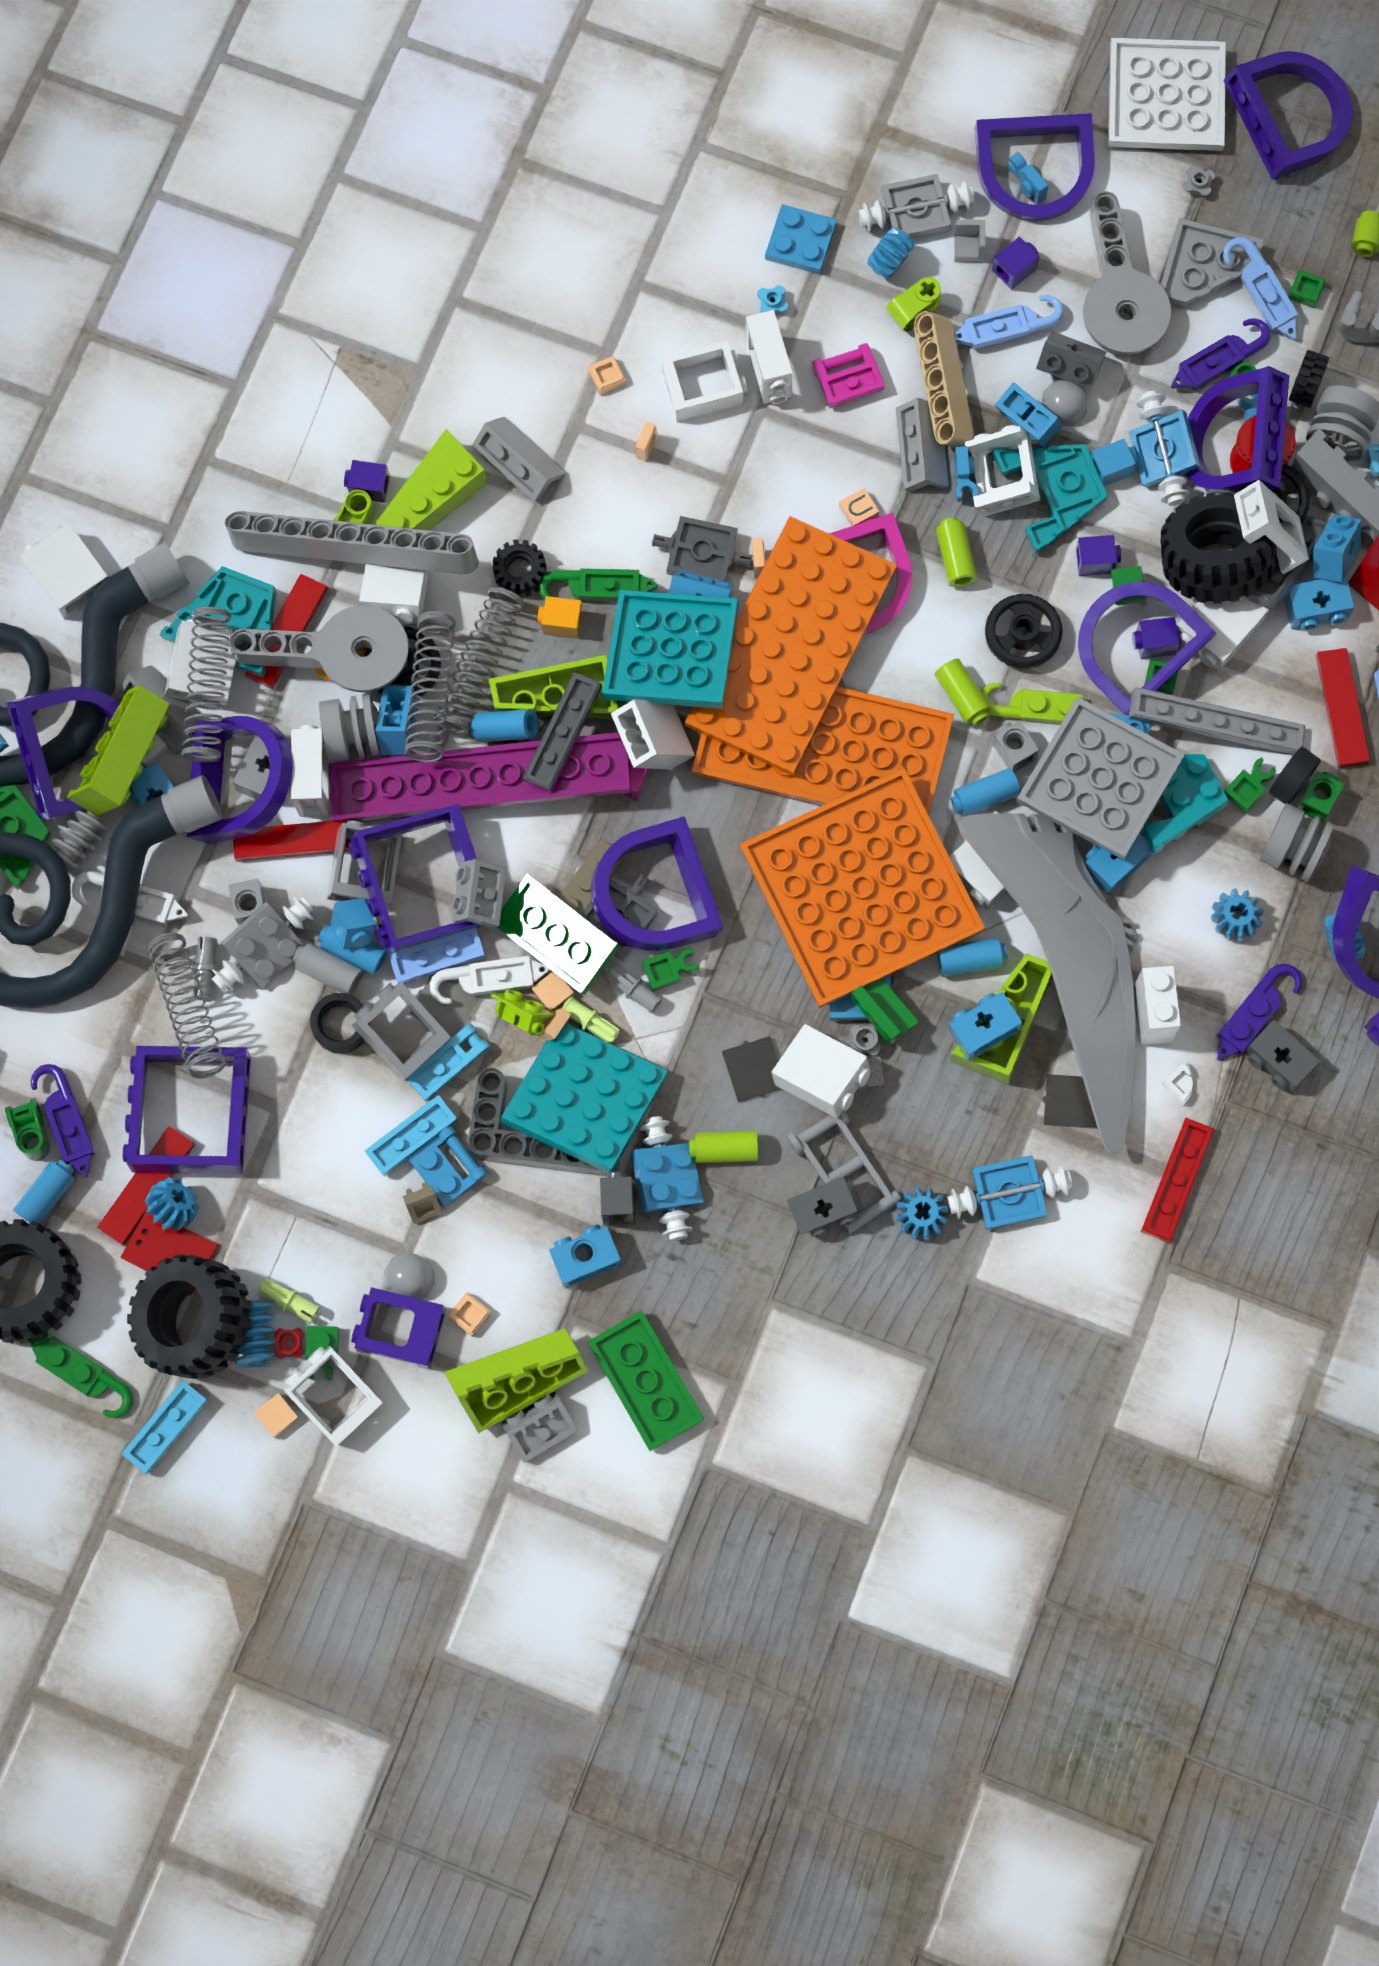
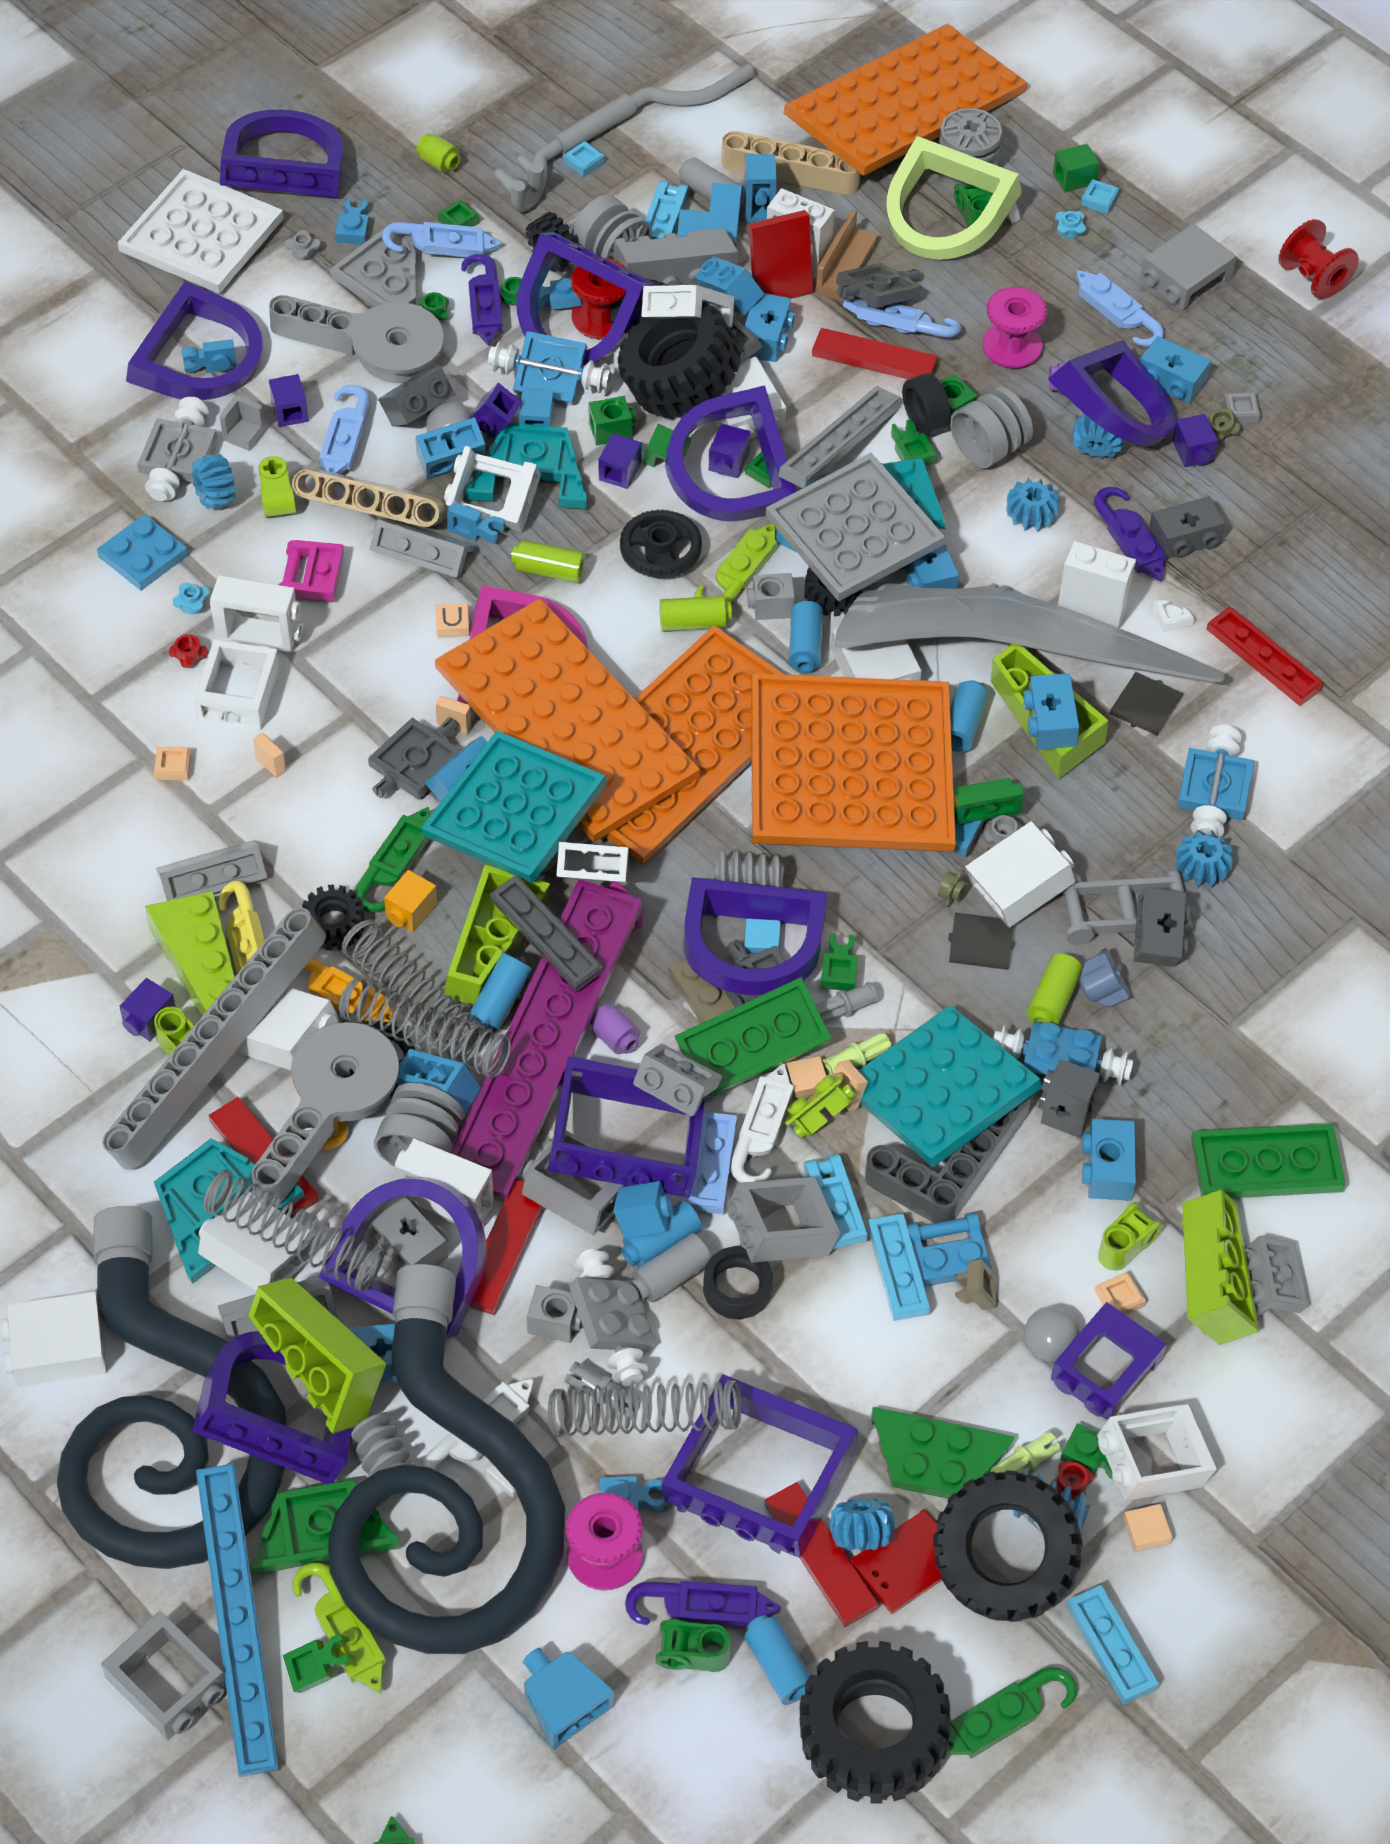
camera: 70 degrees left, 20 degrees down
(69, 1011) = (604, 1541): none -> dark pink hose
(128, 1025) = (637, 1495): none -> dark azure plate
(266, 1233) = (935, 1454): none -> green wing
(457, 602) = (330, 984): none -> light orange plate
(476, 508) = (244, 926): none -> light yellow plate
(520, 827) = (615, 1029): none -> medium lavender brick
(524, 1299) = (1131, 1232): none -> lime piece
(668, 897) = (761, 935): none -> medium azure tile
(716, 860) = (748, 870): none -> light grey piece
(719, 319) = (183, 645): none -> red plate
(755, 1182) = (1103, 980): none -> sand blue piece
(787, 1023) = (952, 887): none -> olive plate
(1086, 429) = (495, 410): none -> dark purple brick
(1137, 514) = (610, 417): none -> green brick
(1188, 314) = (436, 304): none -> green plate
(1247, 209) = (353, 224): none -> dark azure plate

